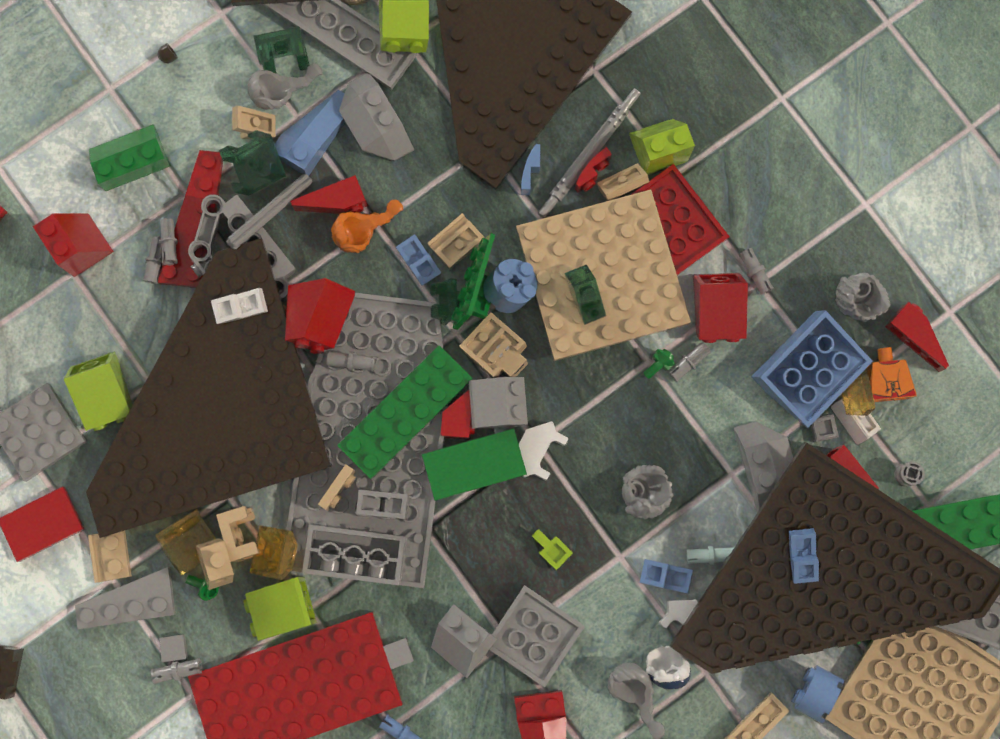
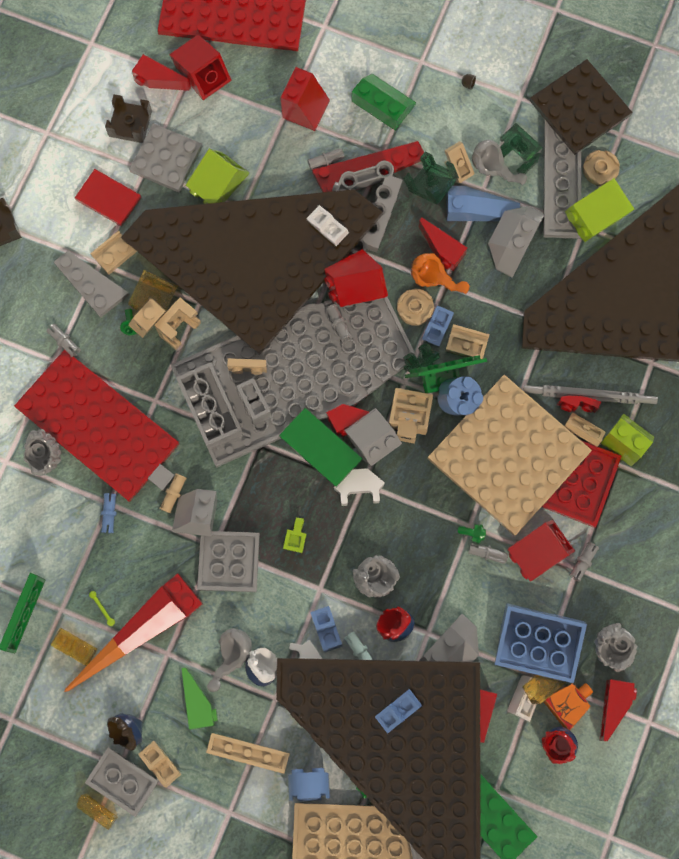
camera: 60 degrees right, 5 degrees down
(168, 242) = (342, 158): light grey axle -> none
(173, 648) = (77, 329): light grey tile -> none
(269, 211) = (405, 207): light grey axle -> none
(276, 553) = (178, 352): clear yellow slope -> none
(279, 608) = (145, 380): lime slope -> none
(382, 270) = (415, 307): none -> tan tile
(405, 412) = (327, 379): green plate -> none
(424, 651) = (173, 493): none -> tan pin
(532, 166) = (554, 360): medium blue slope -> none
(585, 294) = (486, 448): clear green slope -> none
(707, 502) = (395, 624): none -> red hair
(824, 428) = (503, 679): light grey tile -> none
(905, 476) = (506, 762): light grey wheel -> none
(925, 414) = (560, 745): none -> red hair

